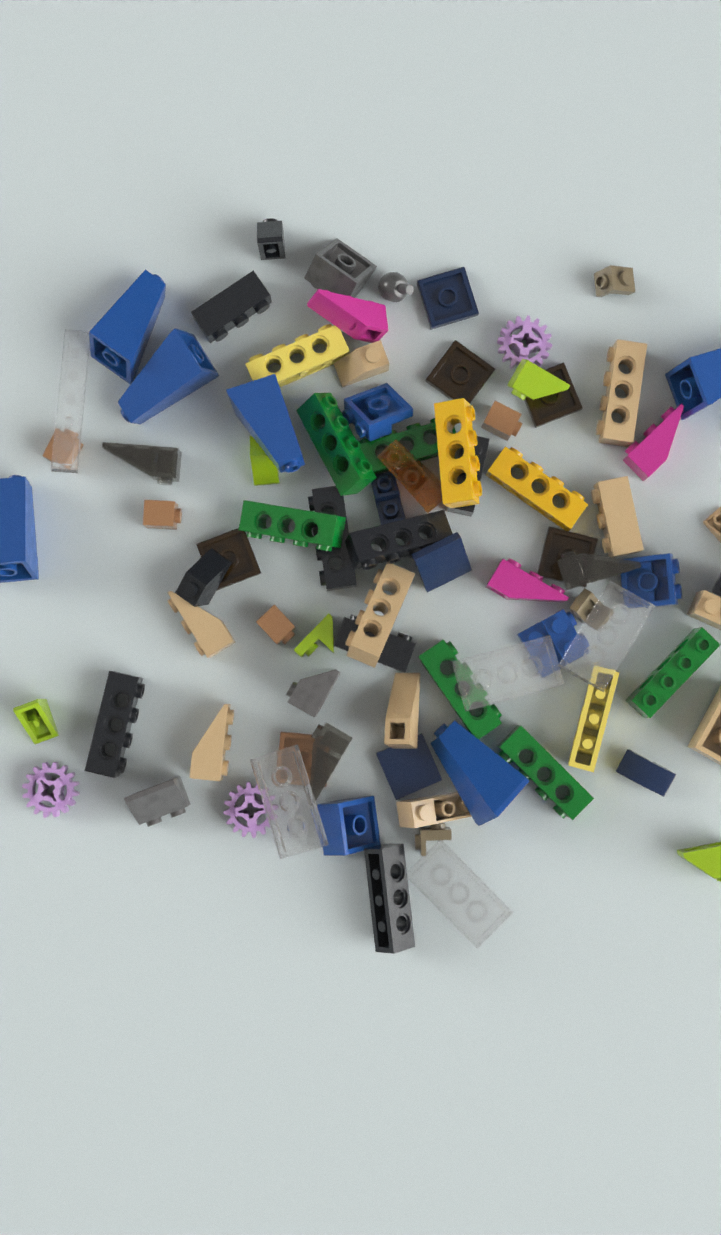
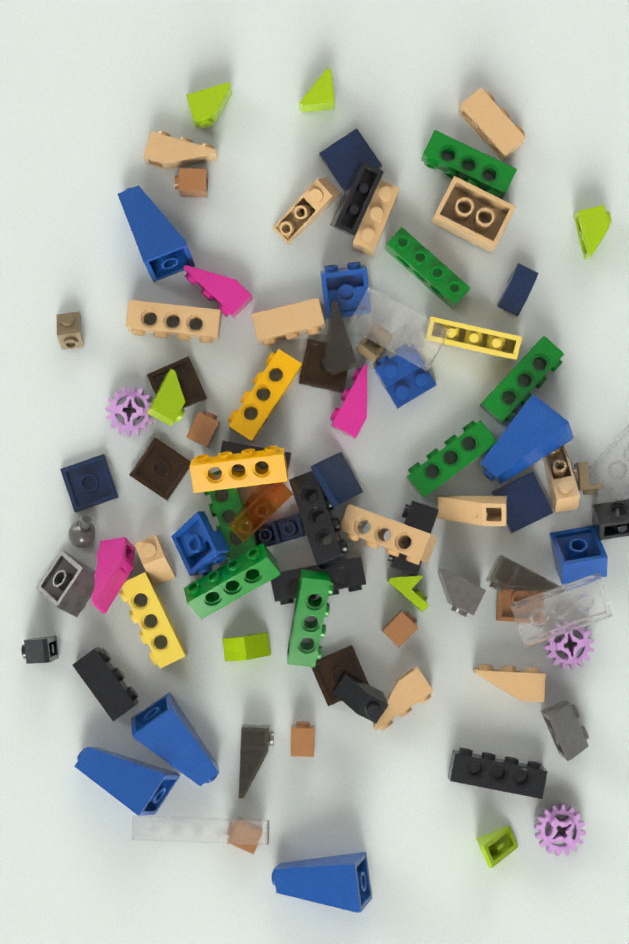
camera: 90 degrees left, 0 degrees up
(266, 417) = (213, 644): blue slope -> none
(507, 673) = (435, 416): clear tile -> none

